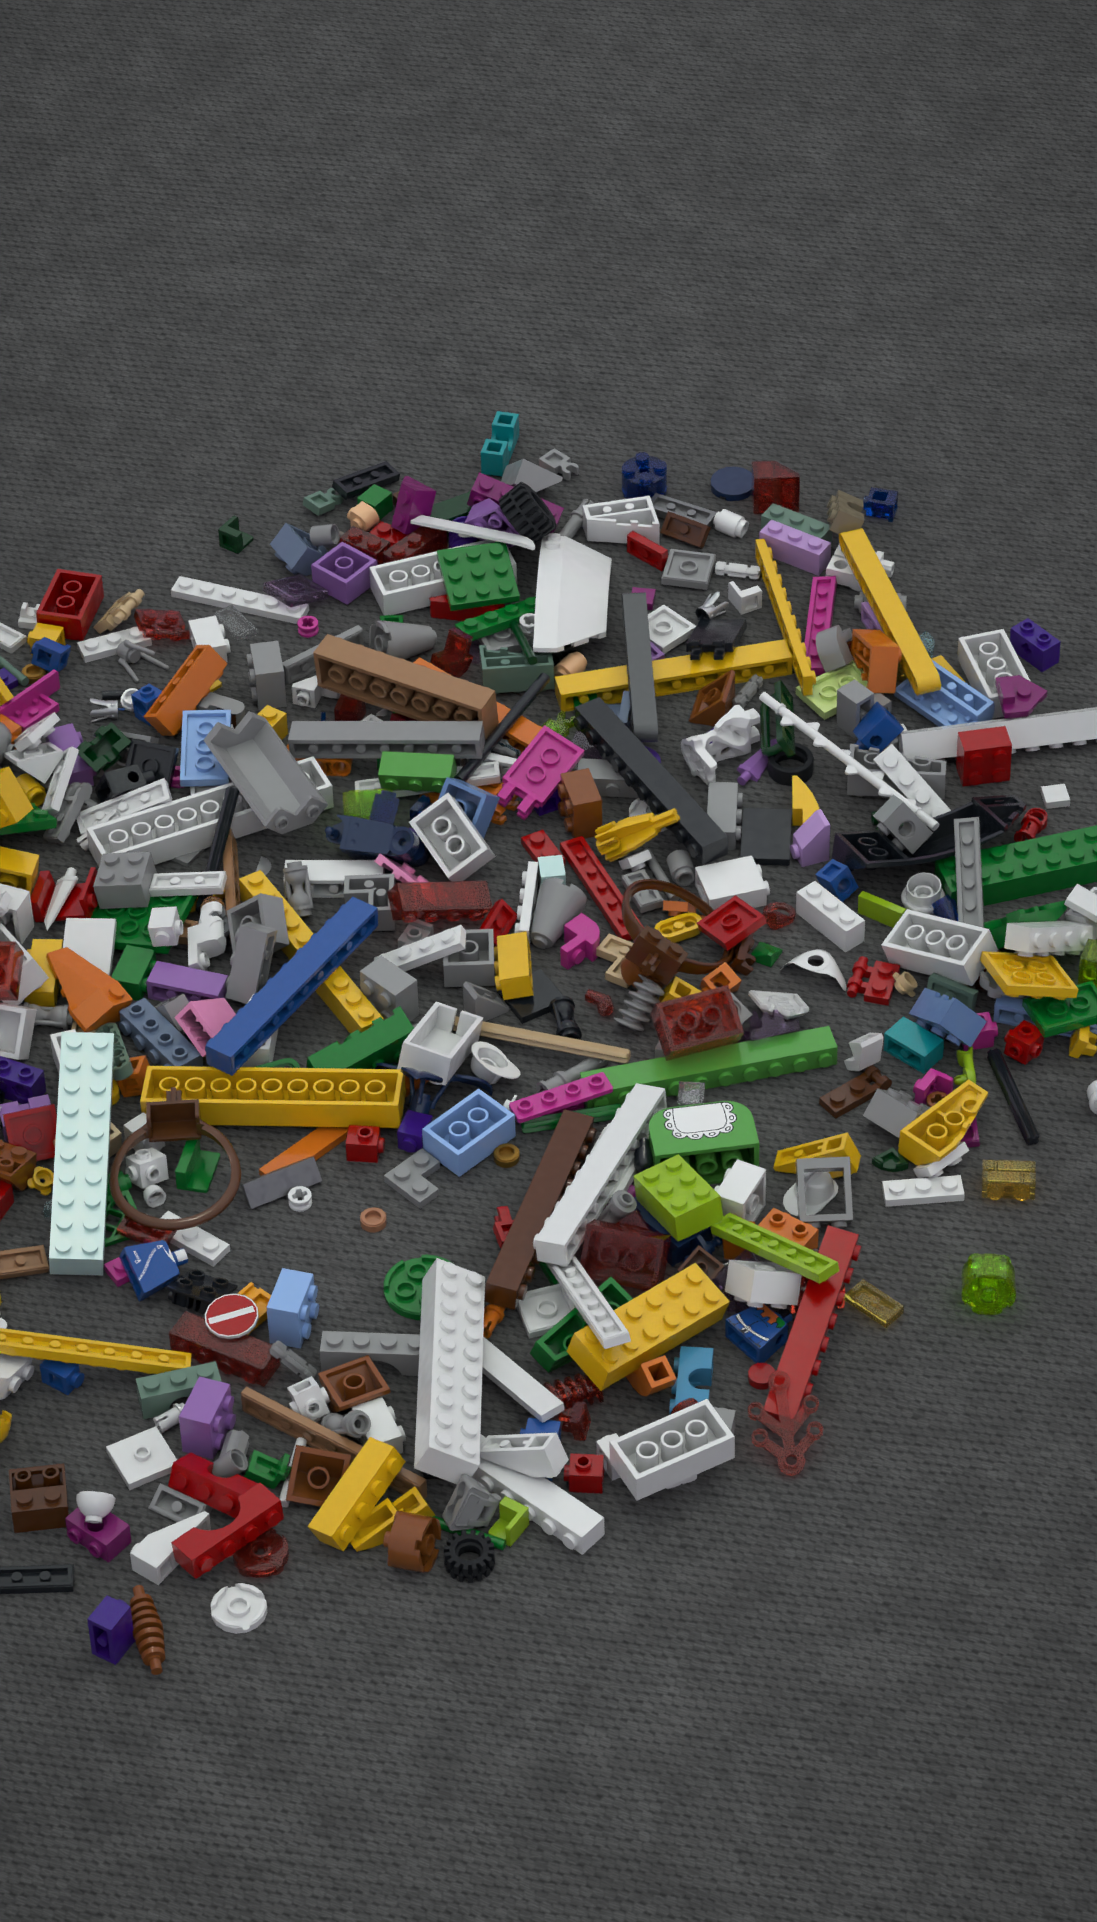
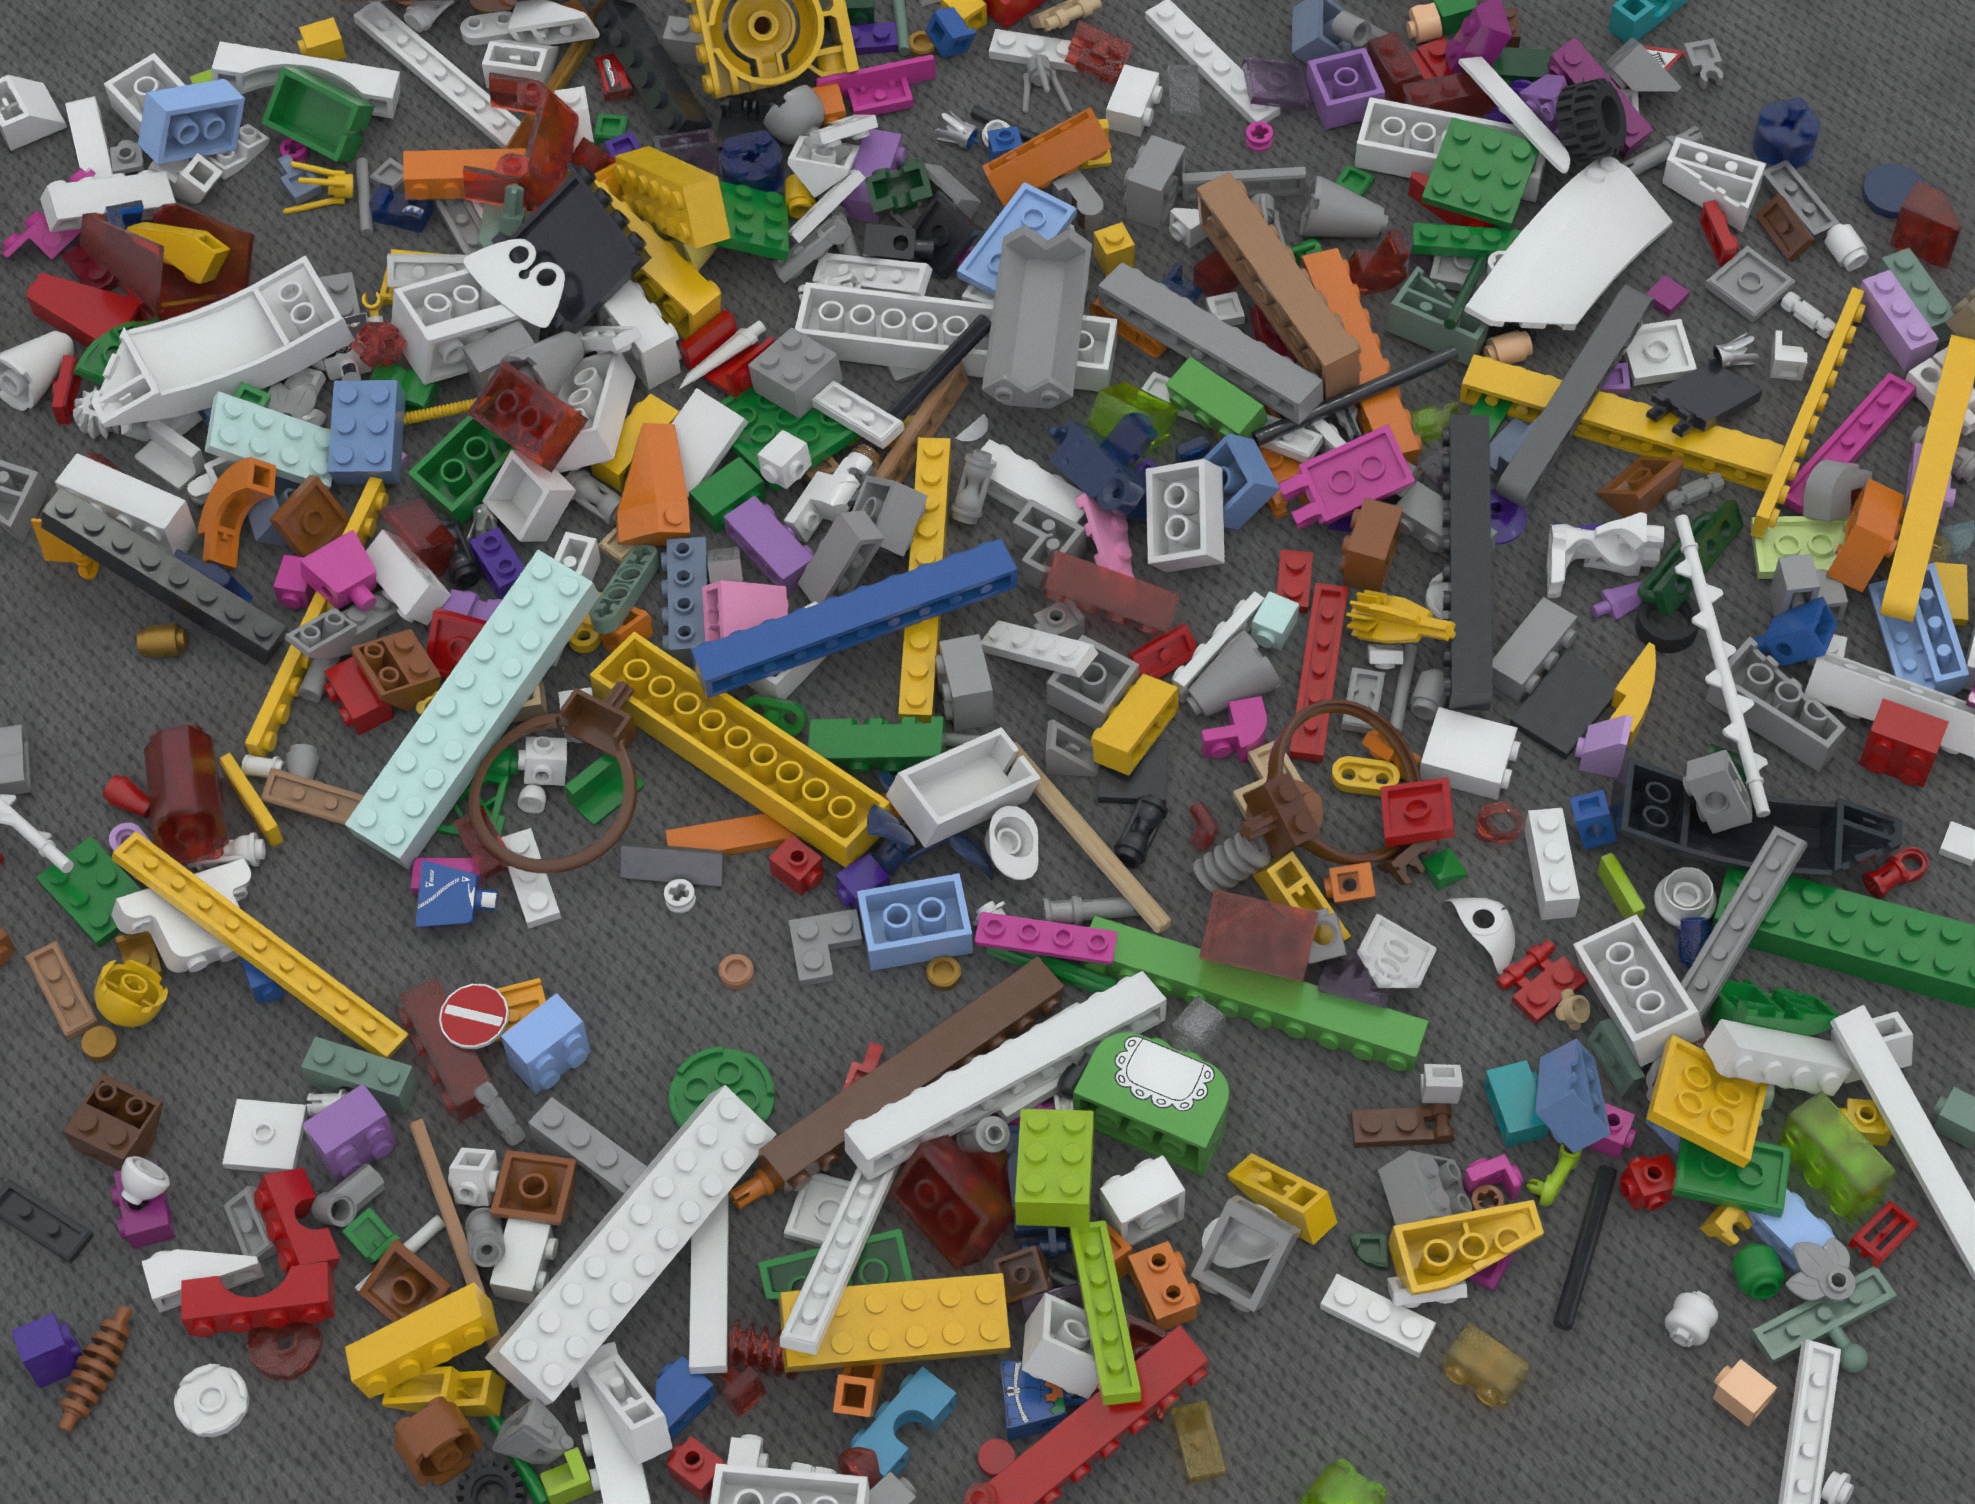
camera: 35 degrees right, 15 degrees up
(198, 1290) = (486, 952): black hinge -> none
(909, 781) = (1778, 737): white plate -> none

